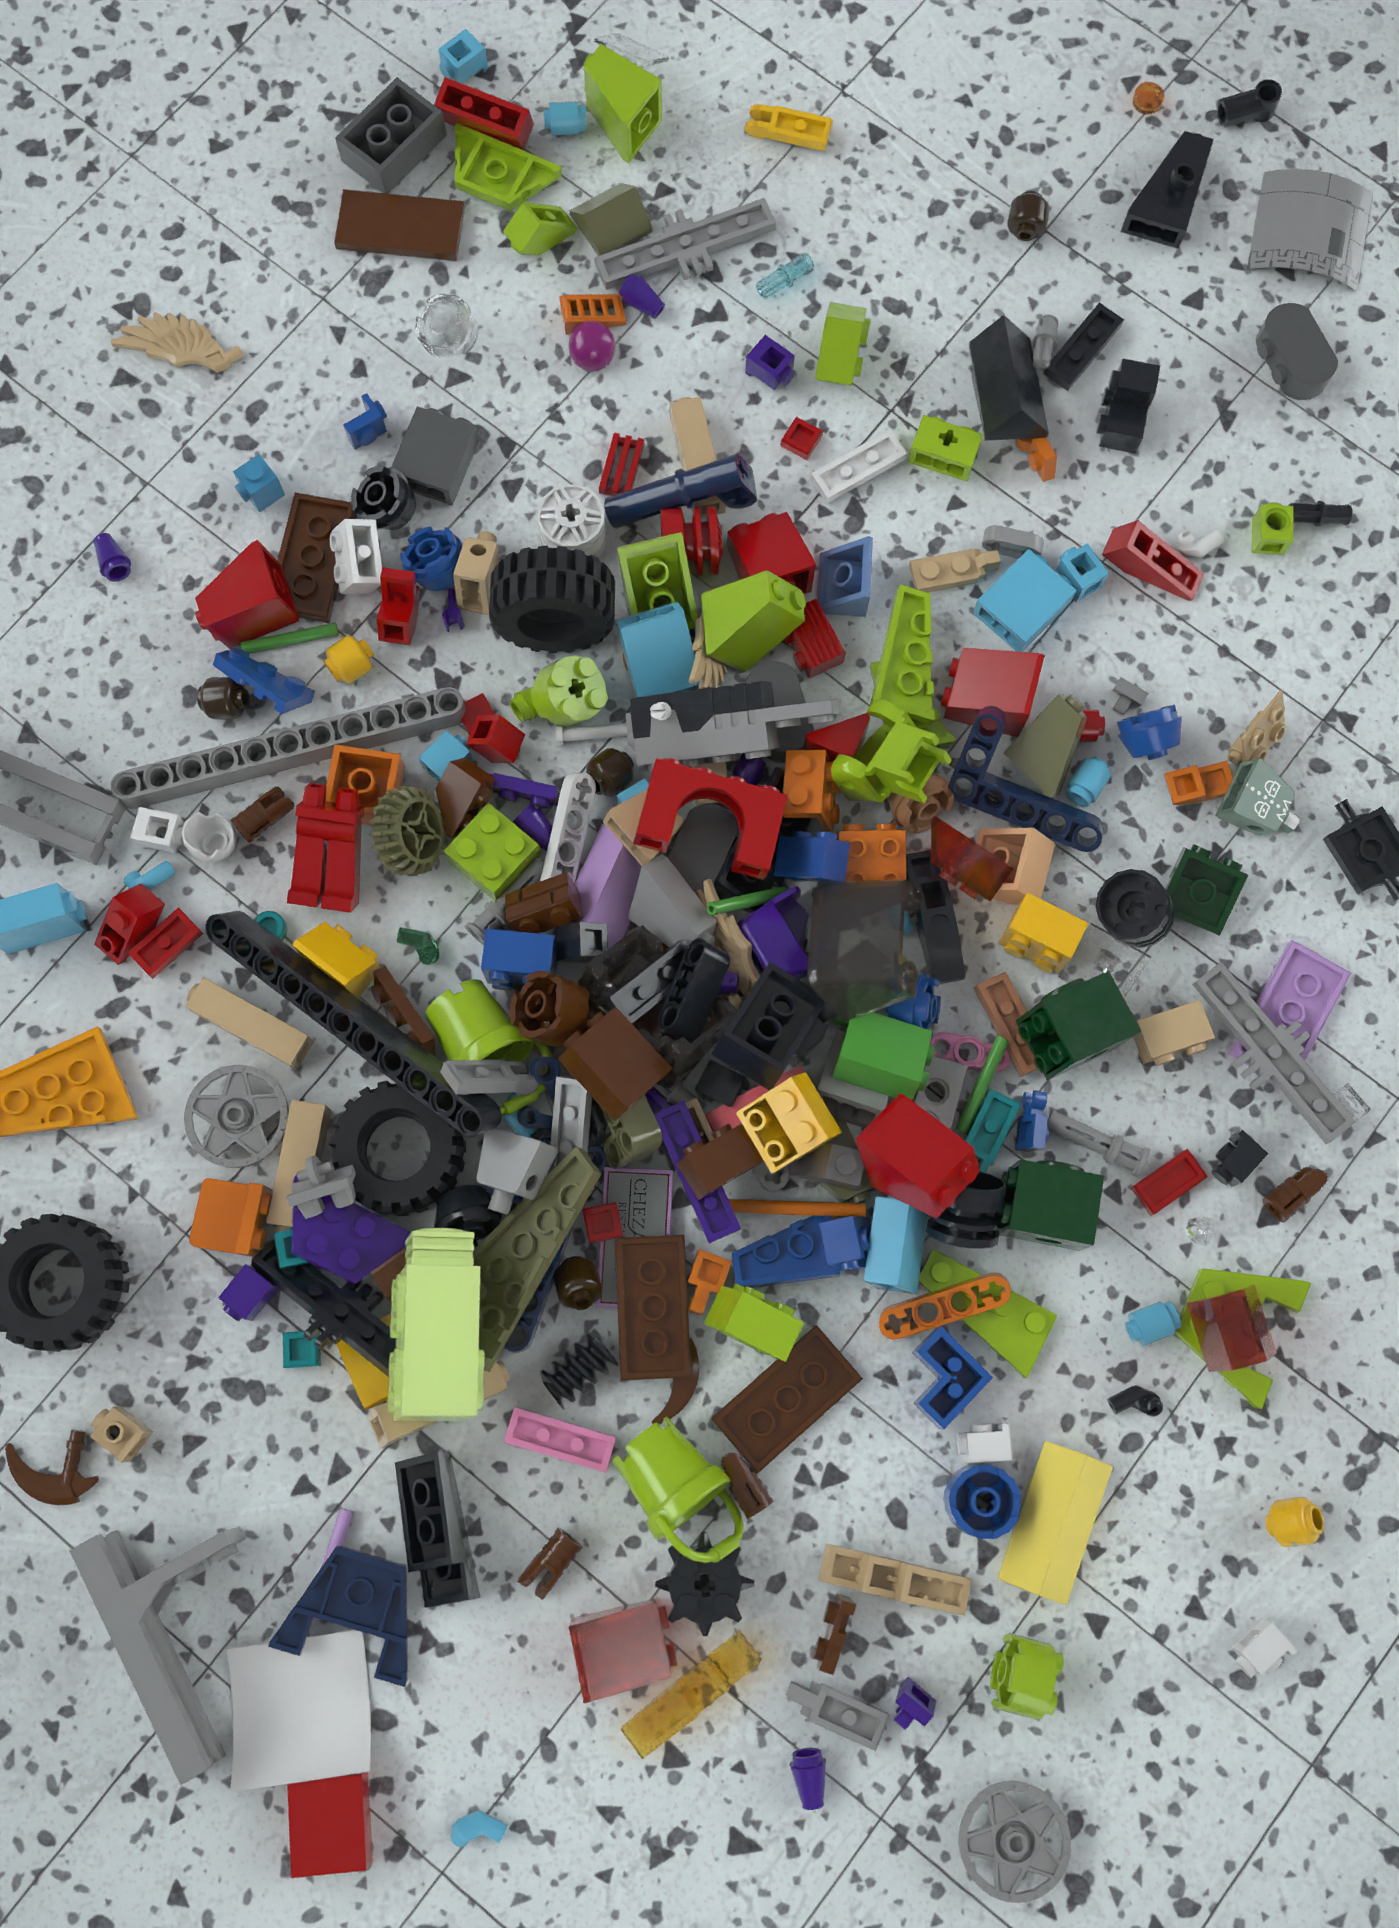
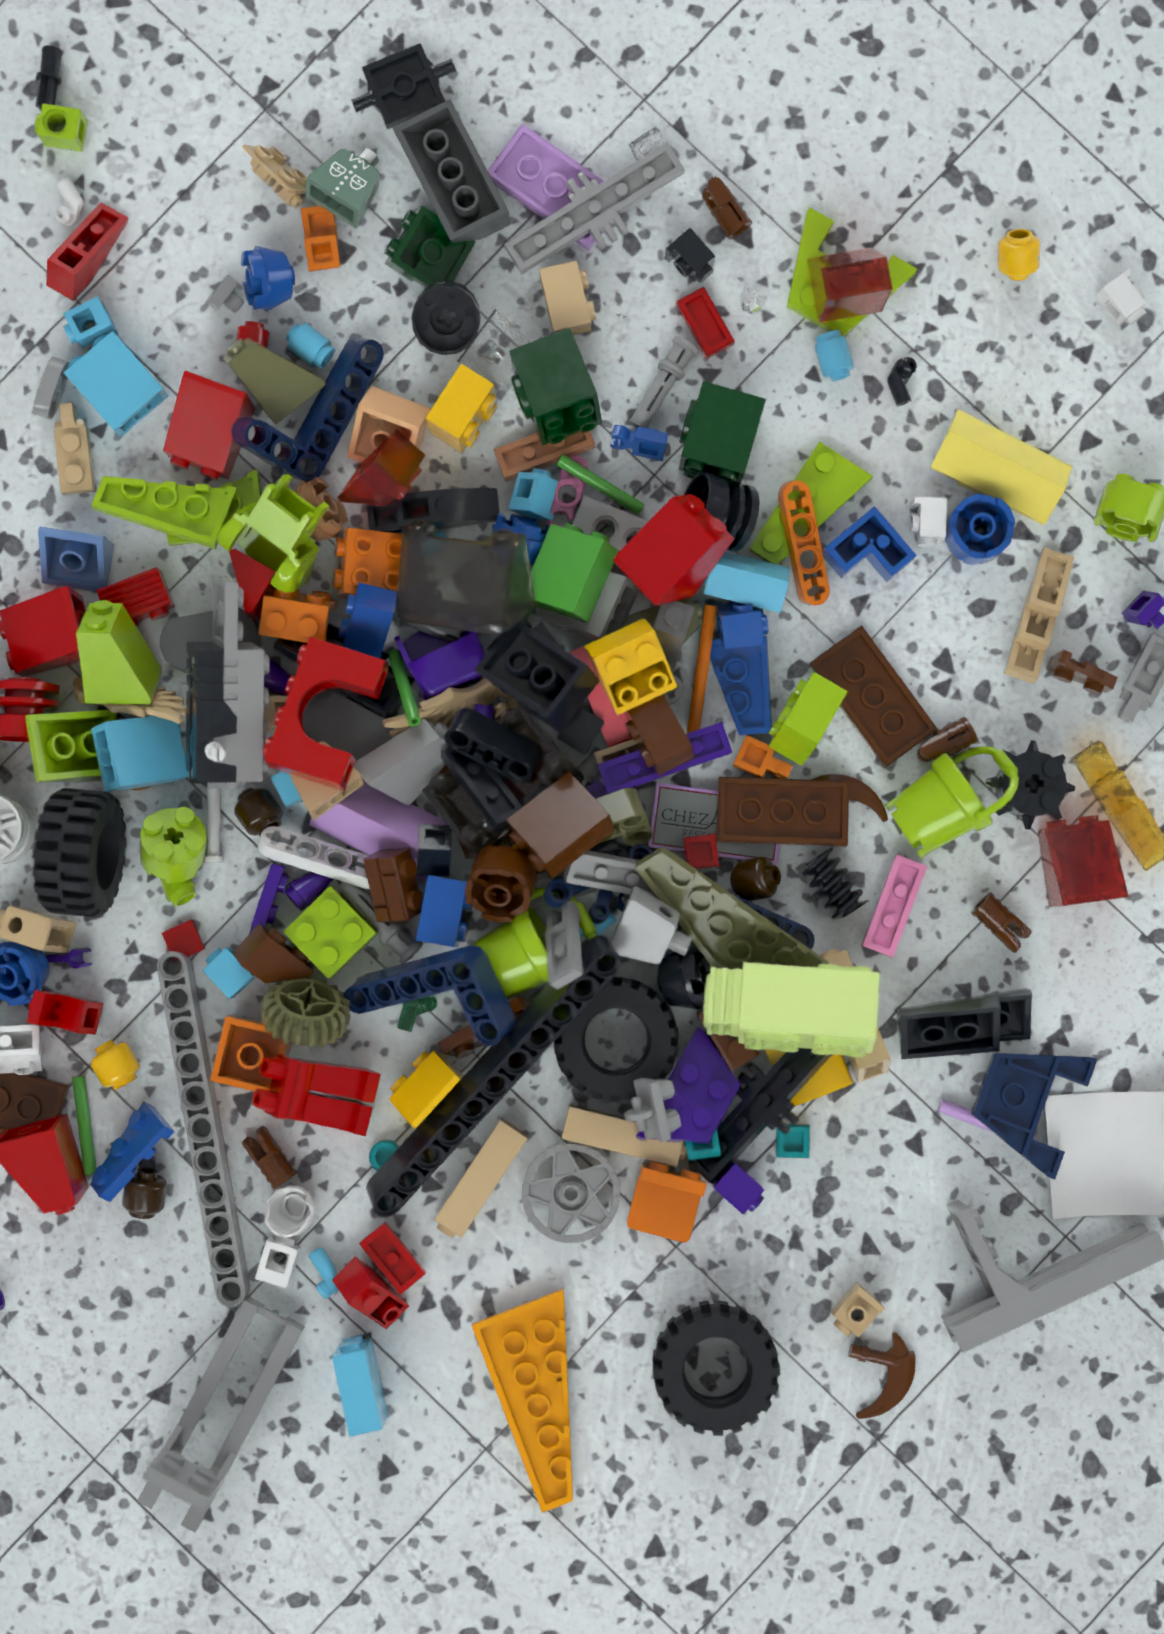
camera: 80 degrees left, 10 degrees up
(455, 970) = (461, 970): none -> dark blue beam
(495, 739) = (215, 921): red brick -> none
(962, 1016) = (534, 494): none -> medium azure brick
(991, 1127) = (642, 481): teal hinge -> none
(1285, 903) = (452, 174): none -> dark grey slope

